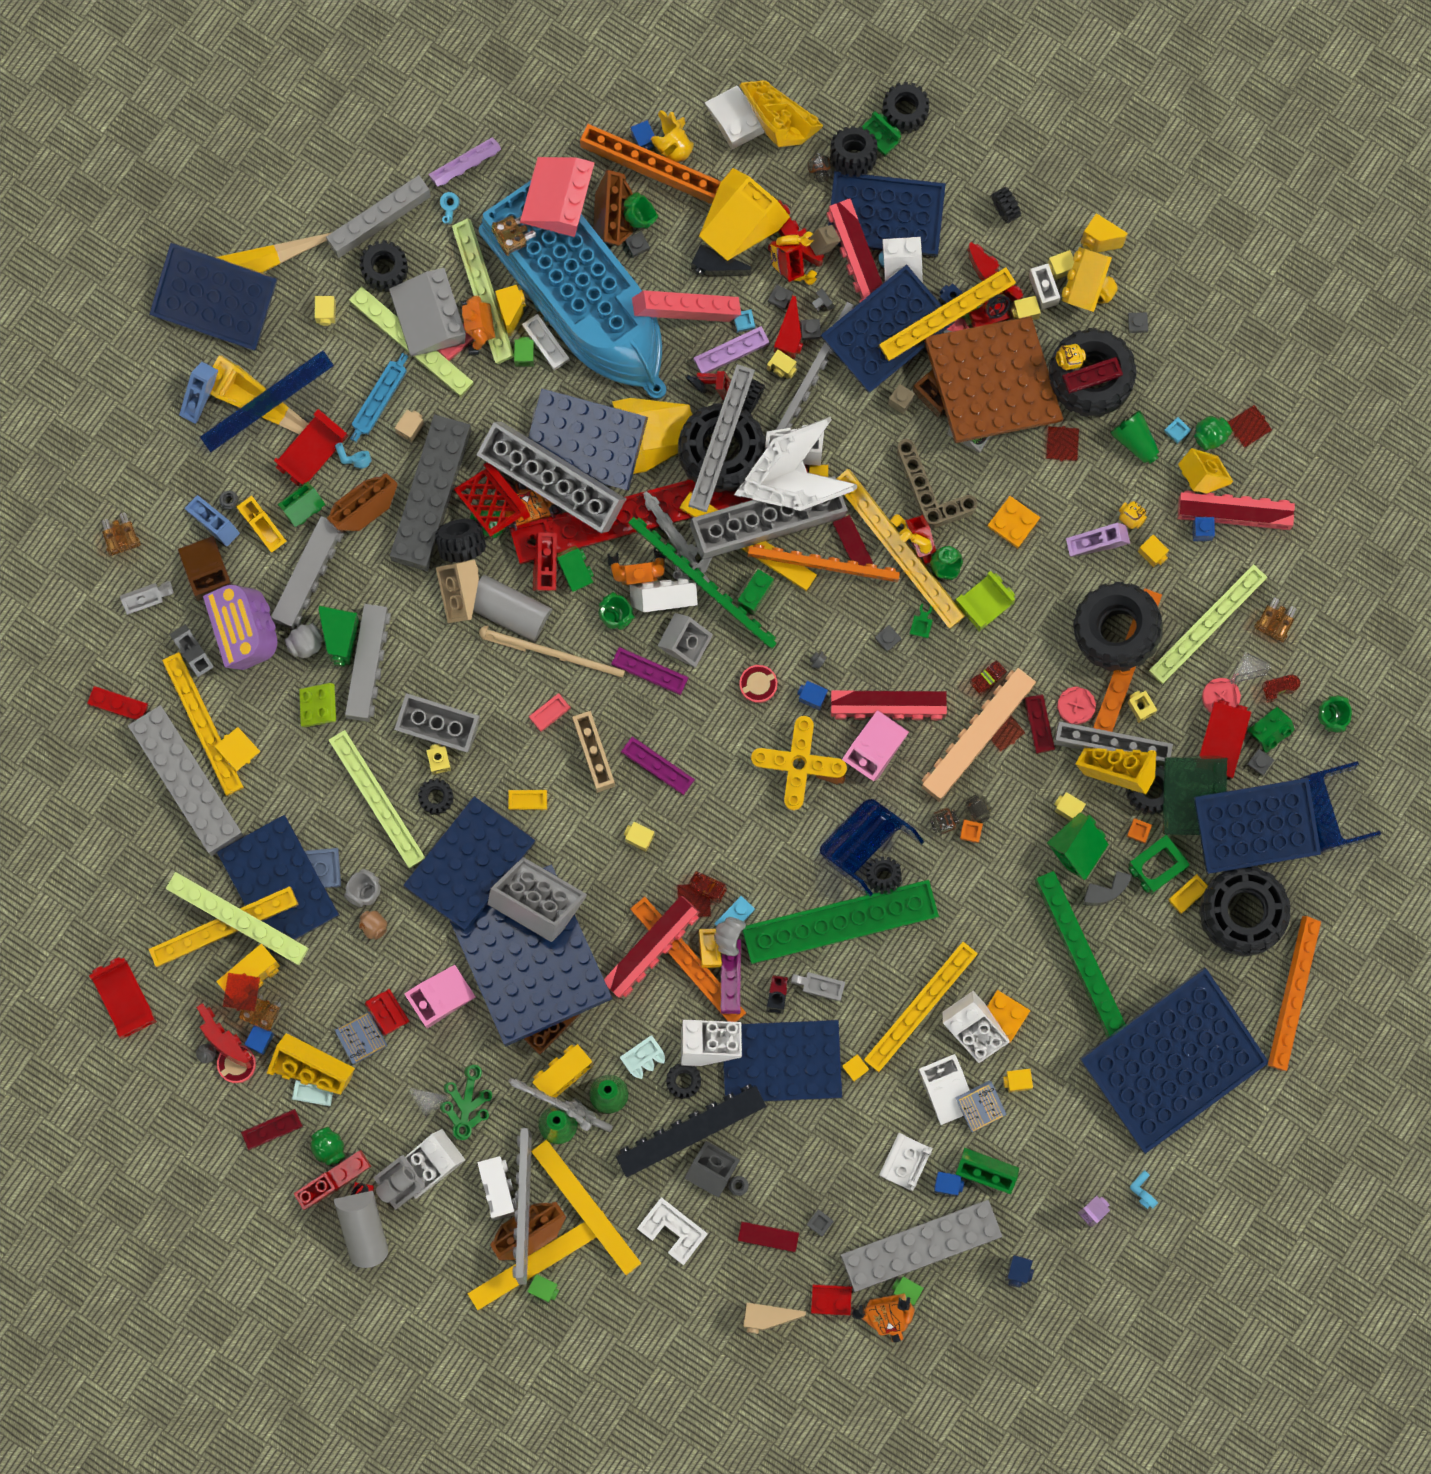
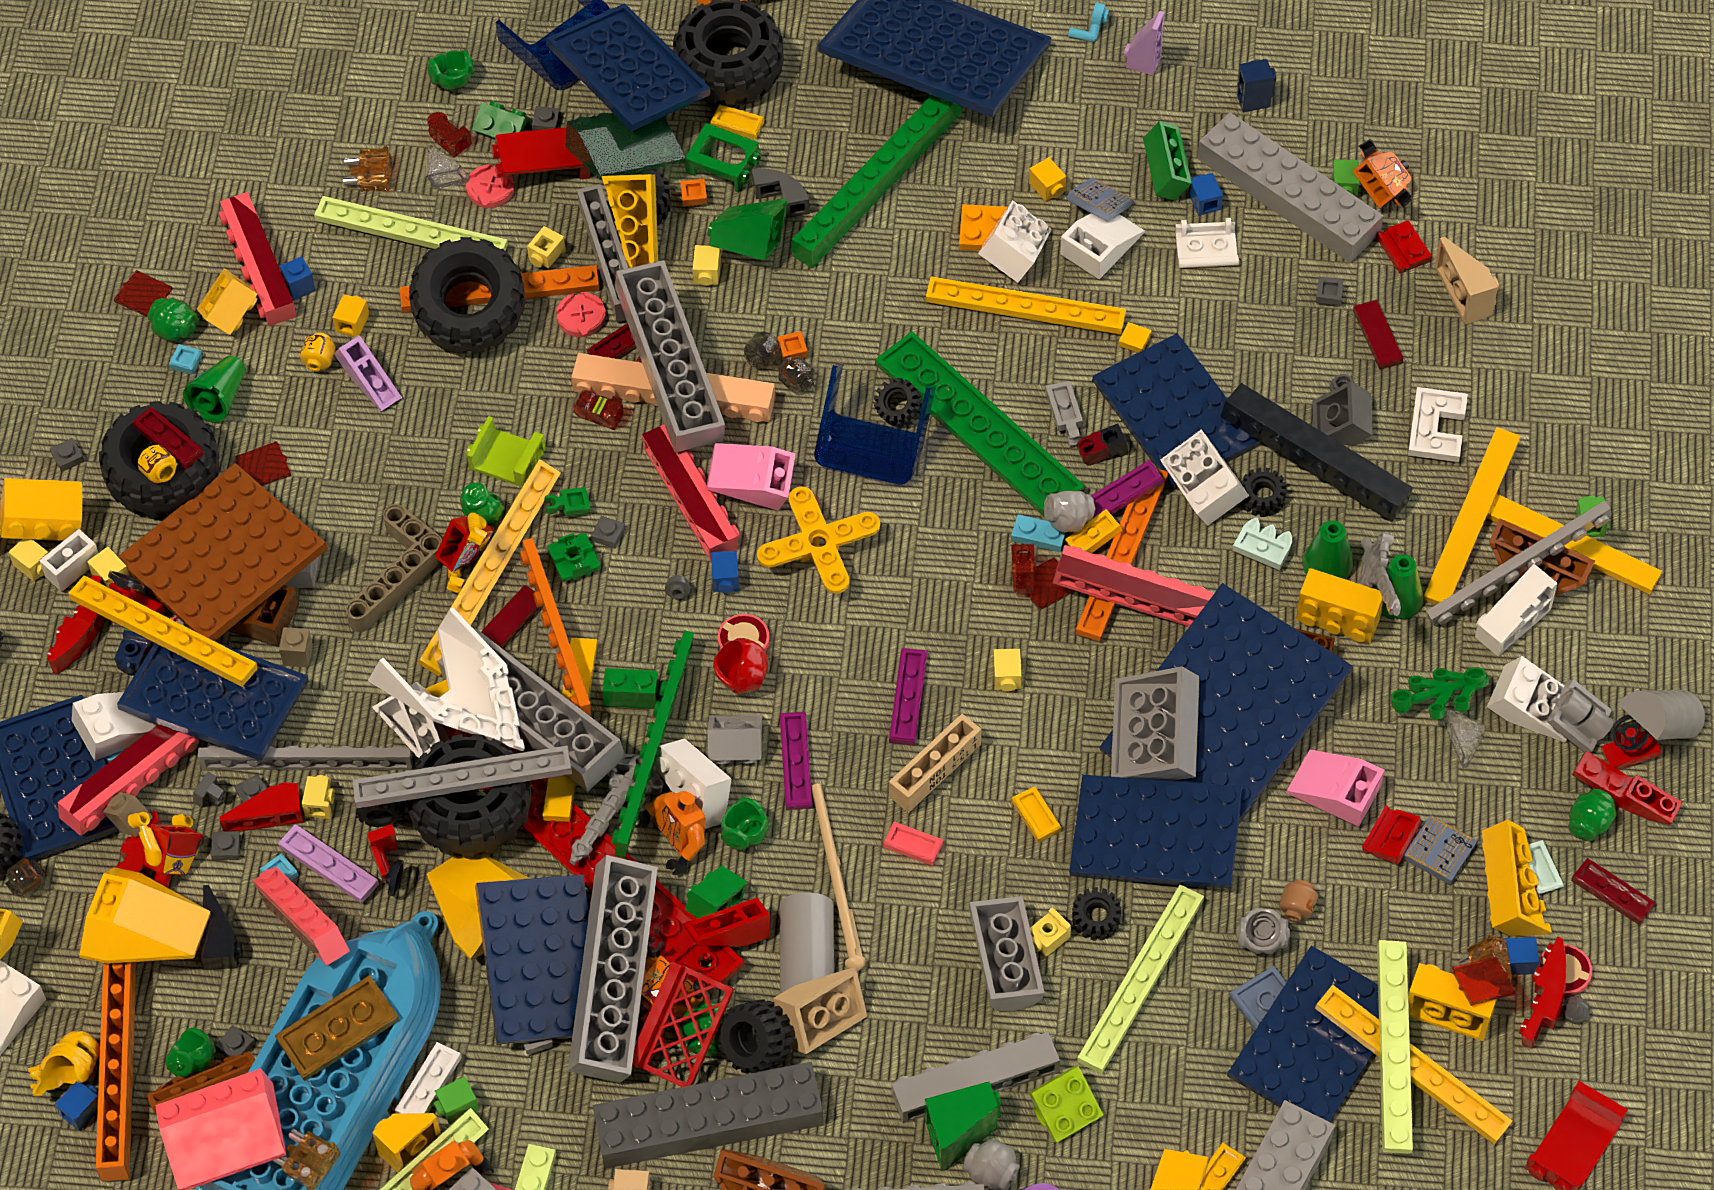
camera: 115 degrees left, 20 degrees down
(589, 288) = (337, 1028): none -> pearl gold tile
(730, 665) = (741, 665): none -> red piece
(871, 613) = (574, 567): none -> green piece
(990, 732) = (669, 356): none -> light grey brick
(1013, 522) = (390, 470): light orange plate -> none

